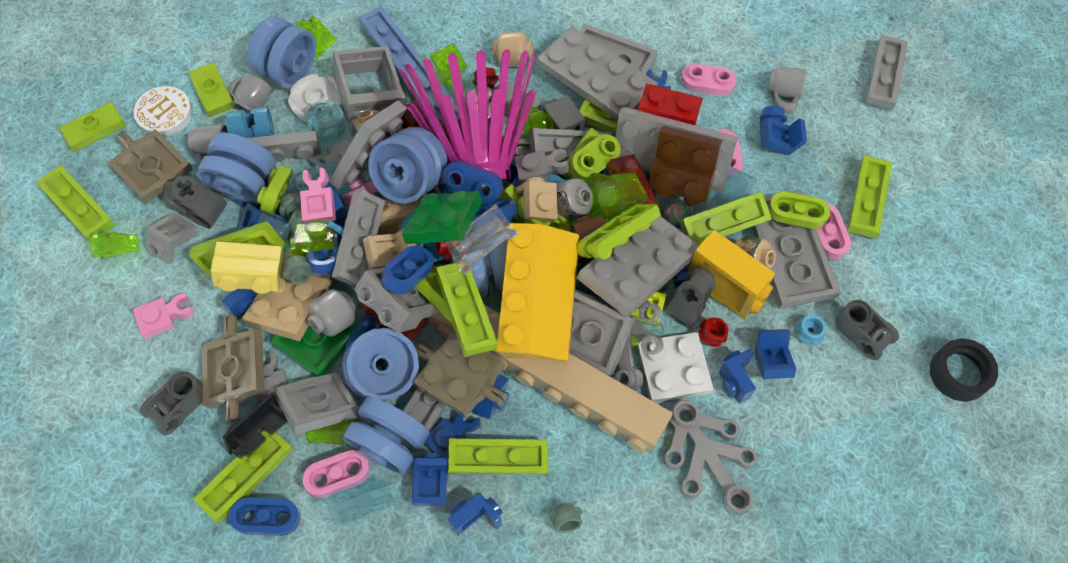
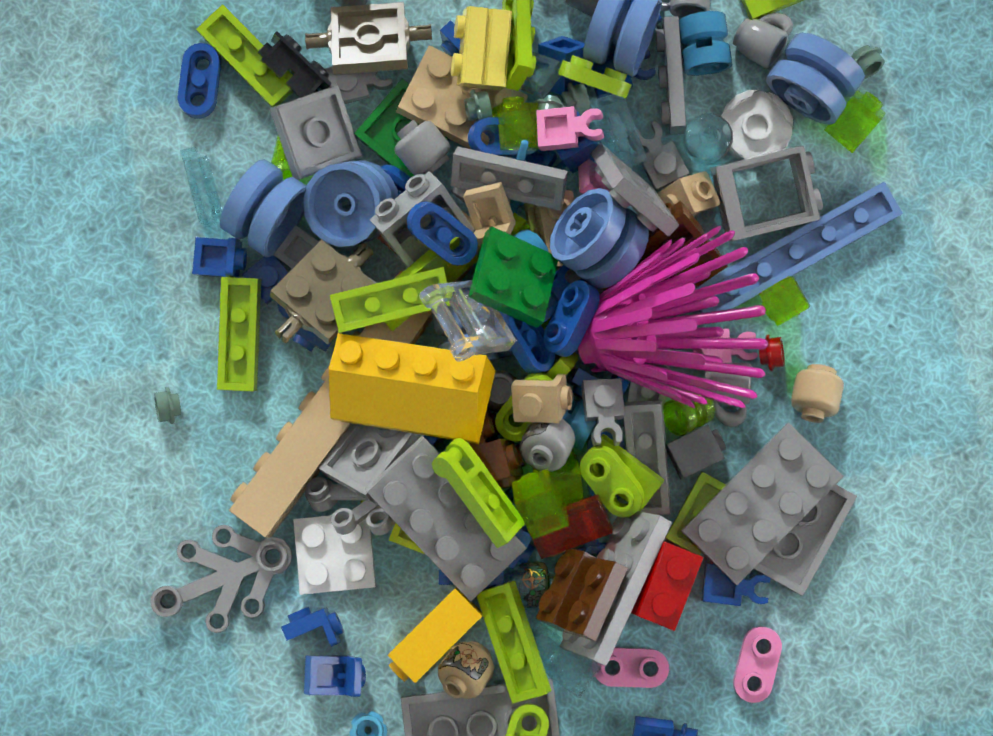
camera: 100 degrees right, 20 degrees up
(337, 474) = (235, 158): bright pink plate -> none
(467, 513) = (180, 296): blue bracket -> none
(692, 296) = (414, 583): dark grey piece -> none
(716, 326) = (377, 615): red plate -> none

